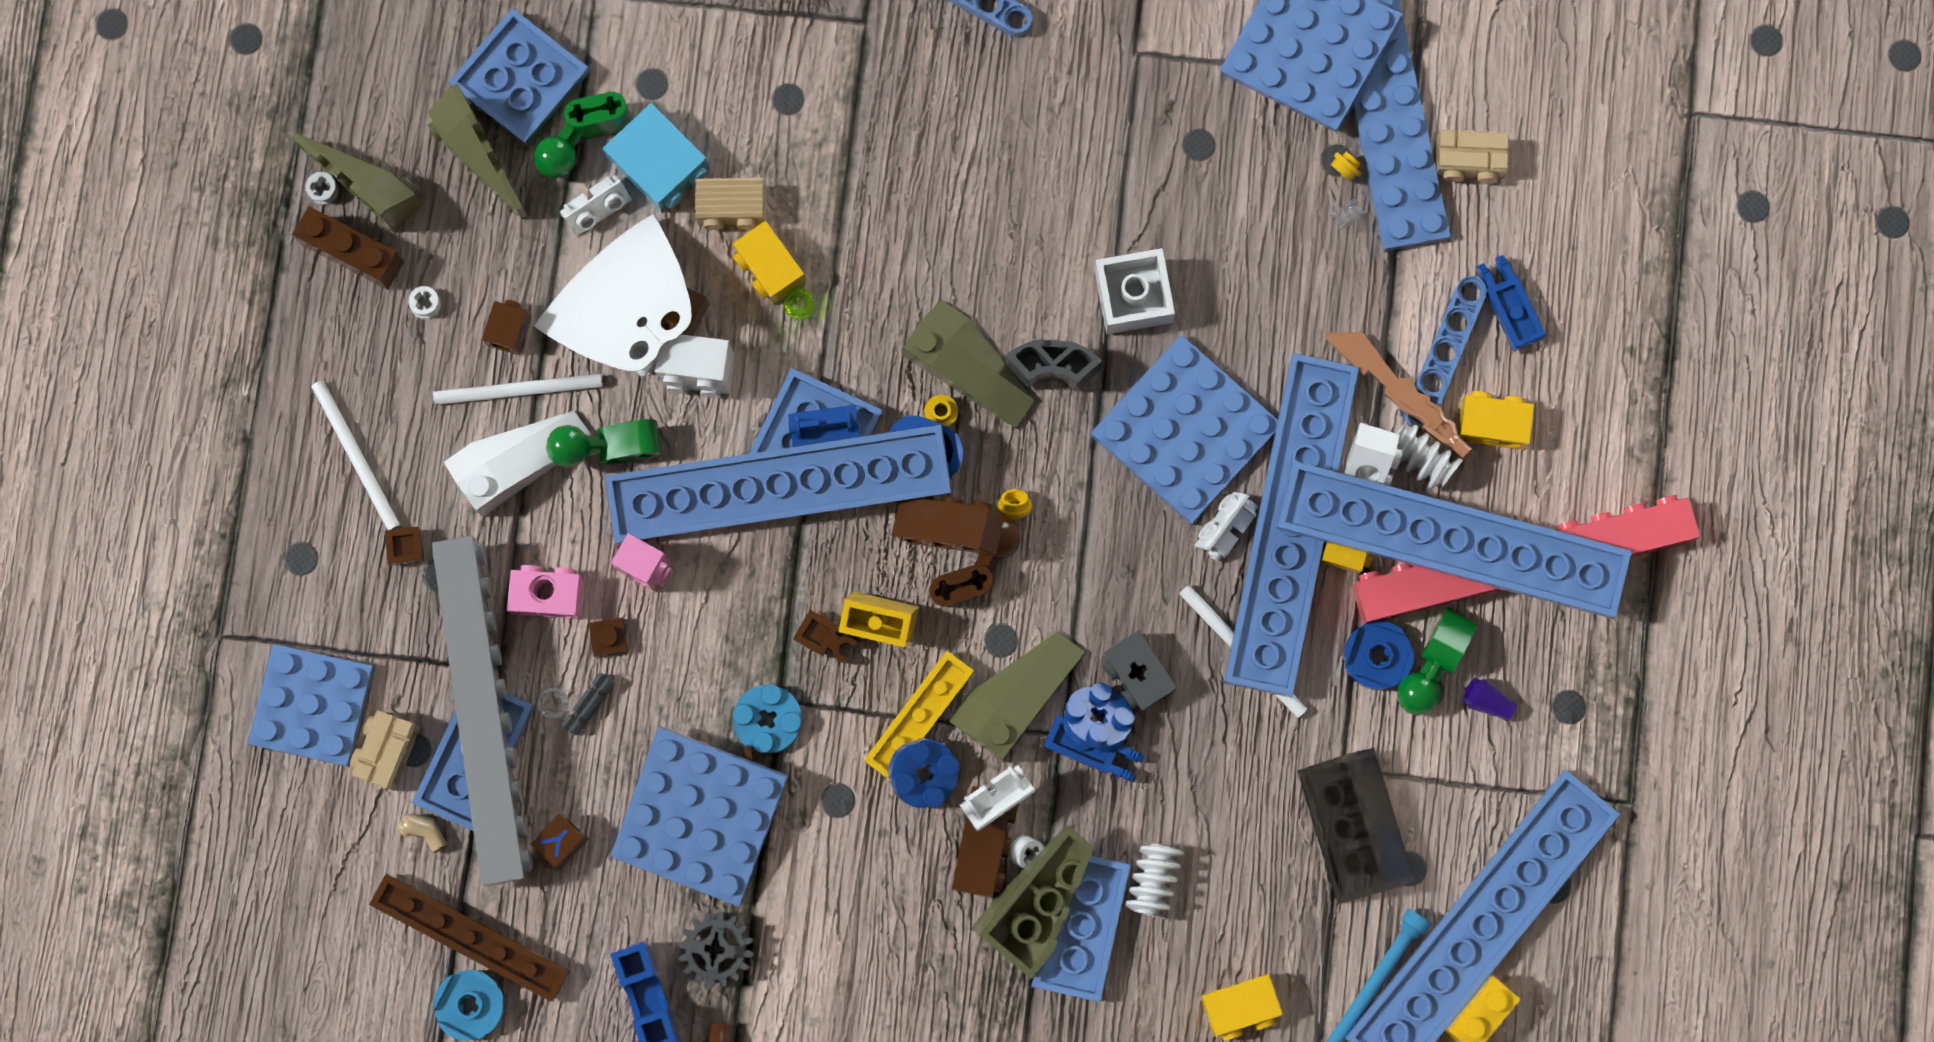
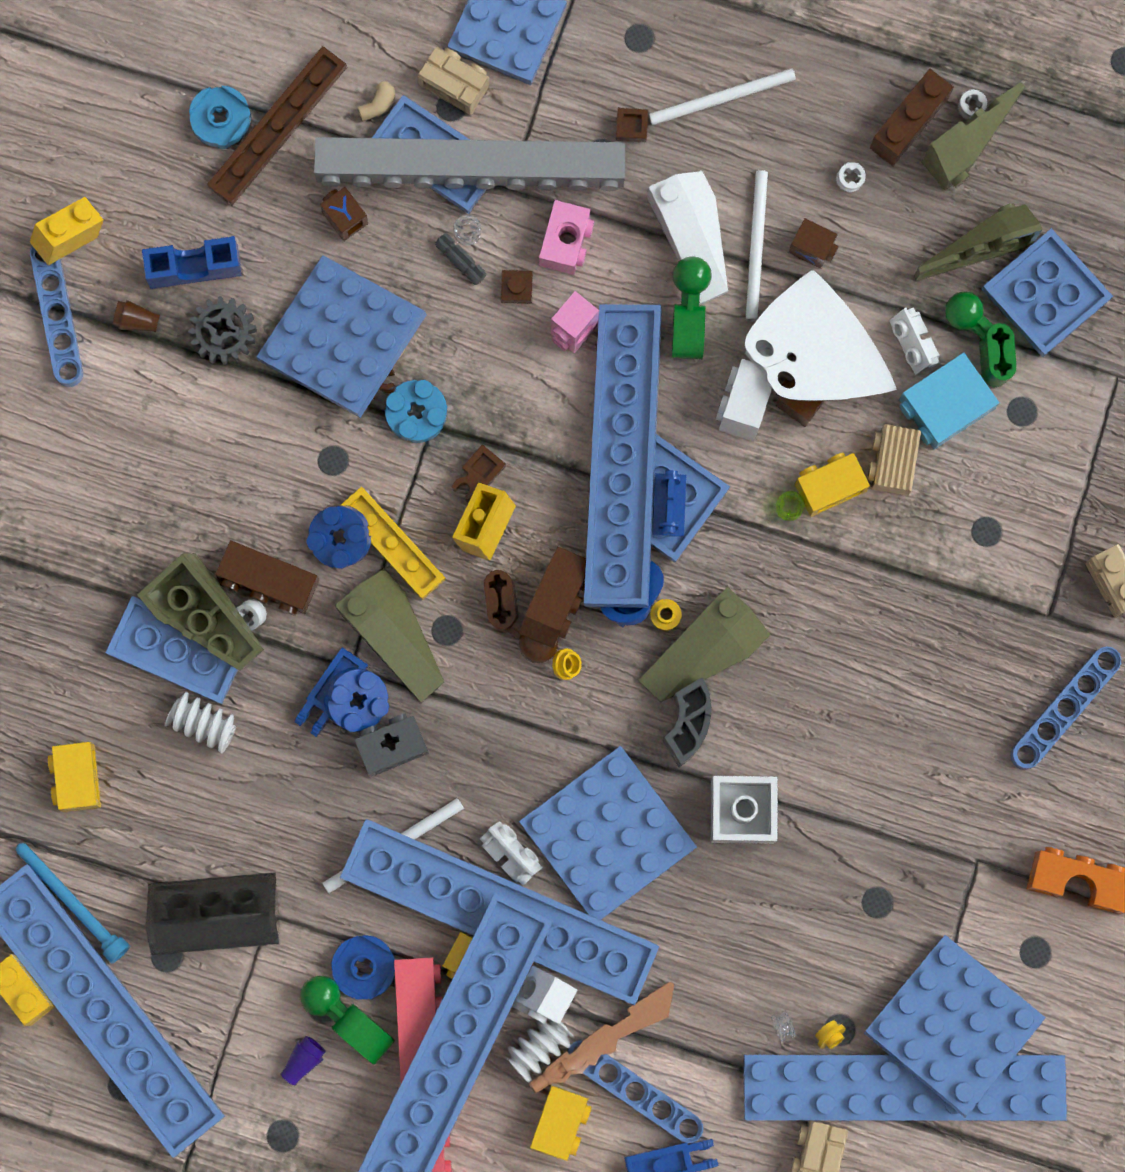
camera: 90 degrees right, 0 degrees up
(985, 805) = (302, 601): white hinge -> none

